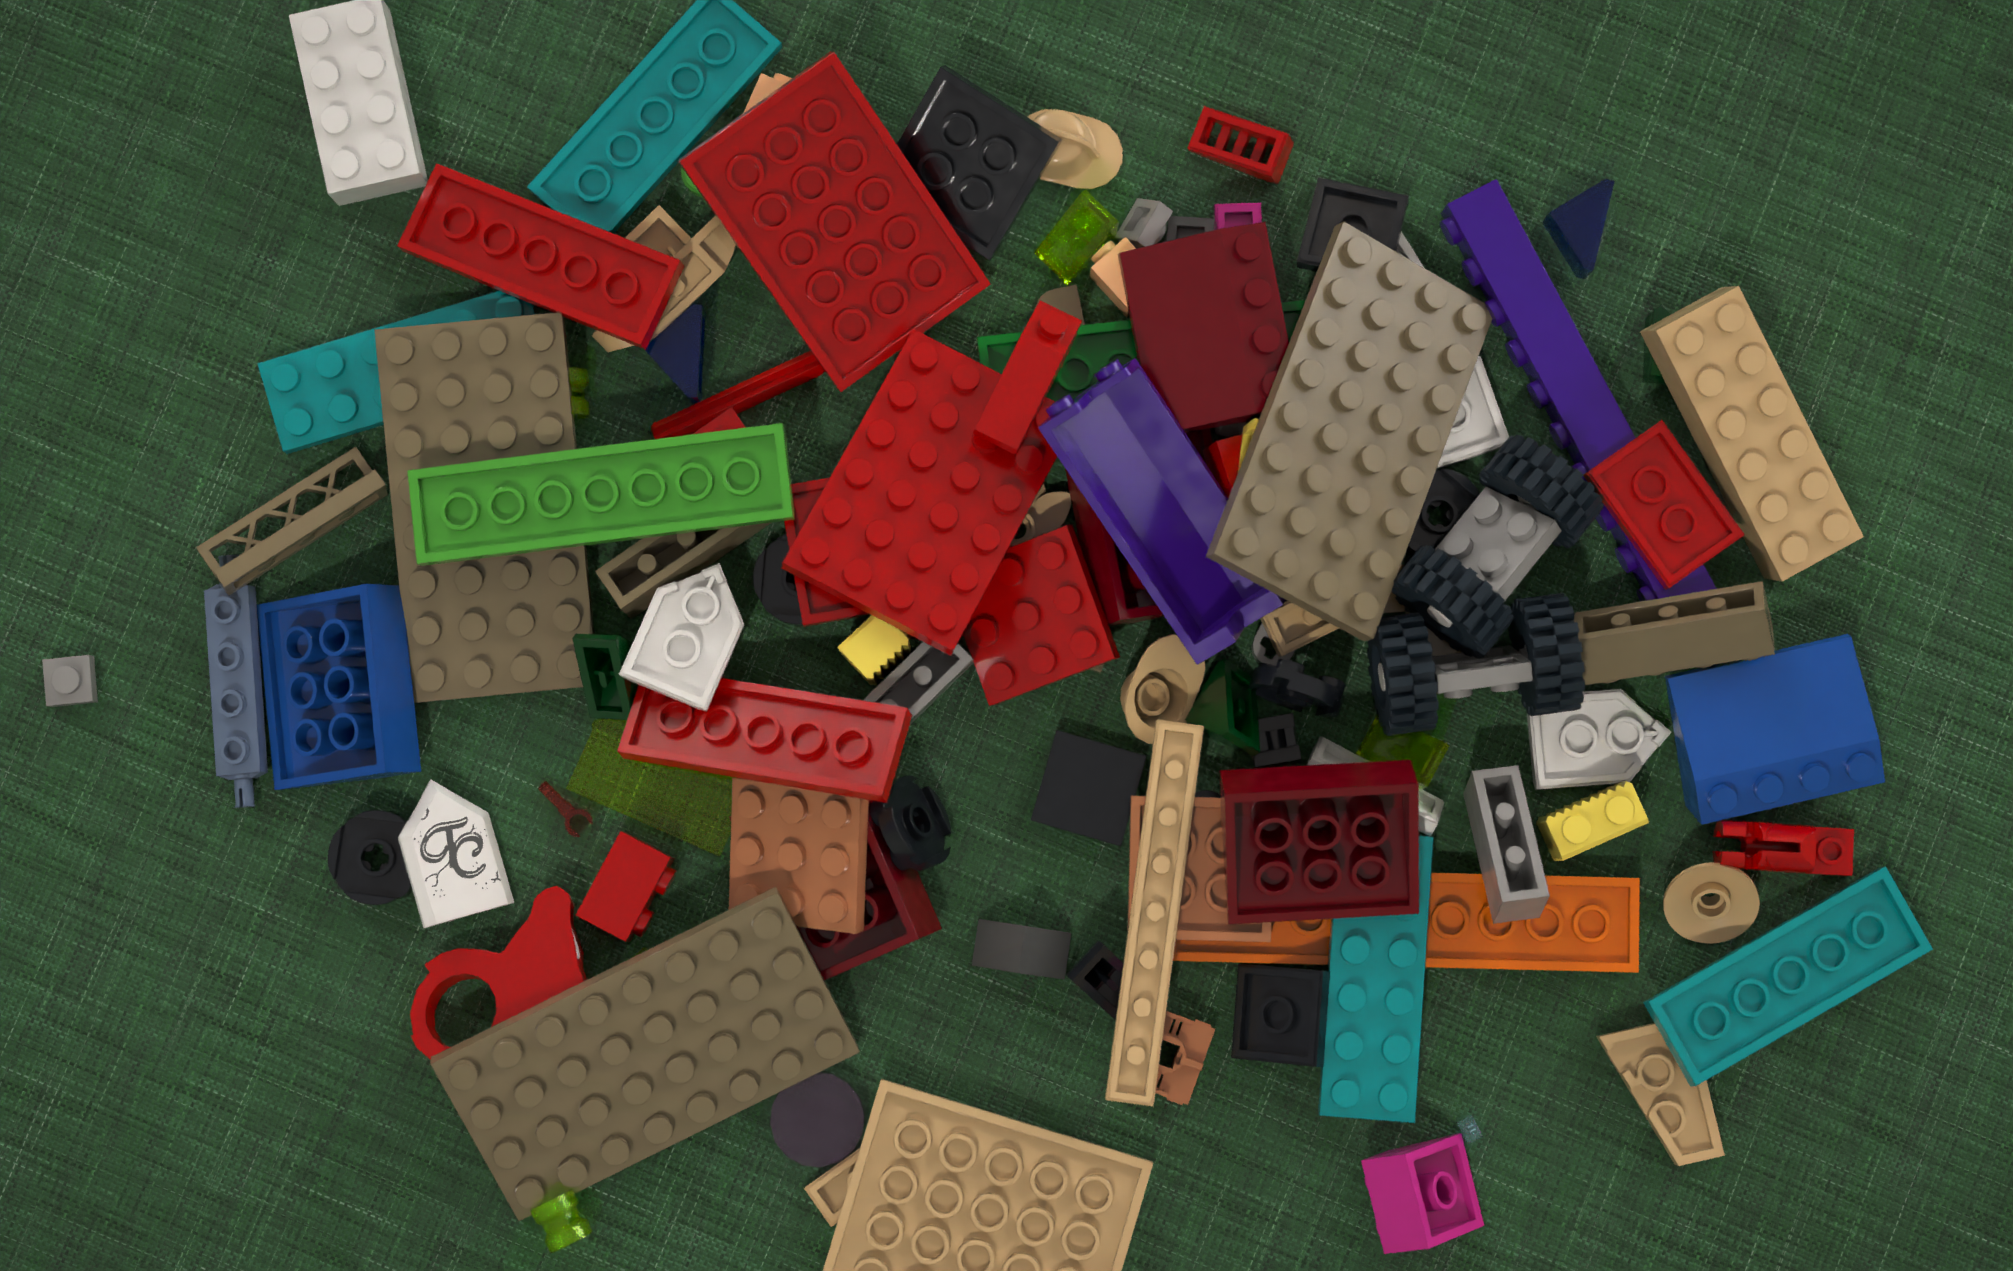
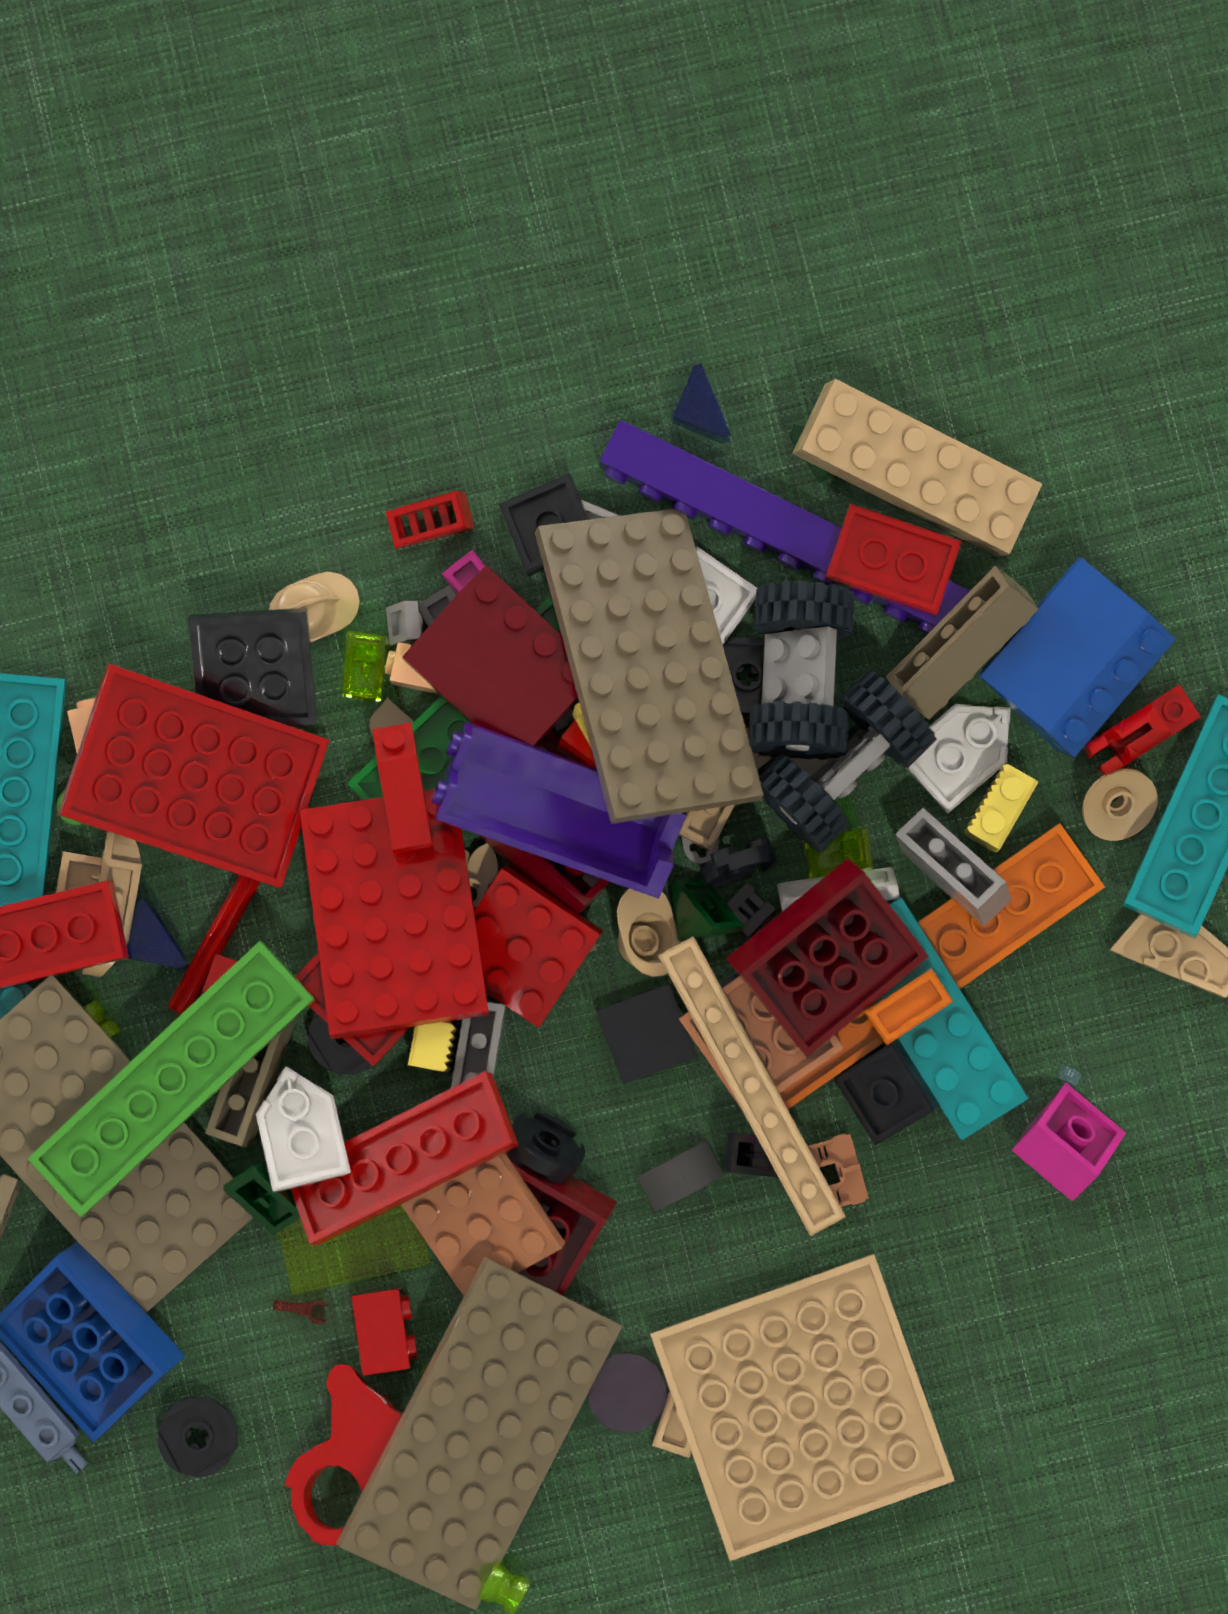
camera: 30 degrees left, 0 degrees up
(452, 858) = (250, 1399): white tile -> none
(1363, 948) = (909, 1007): none -> orange tile

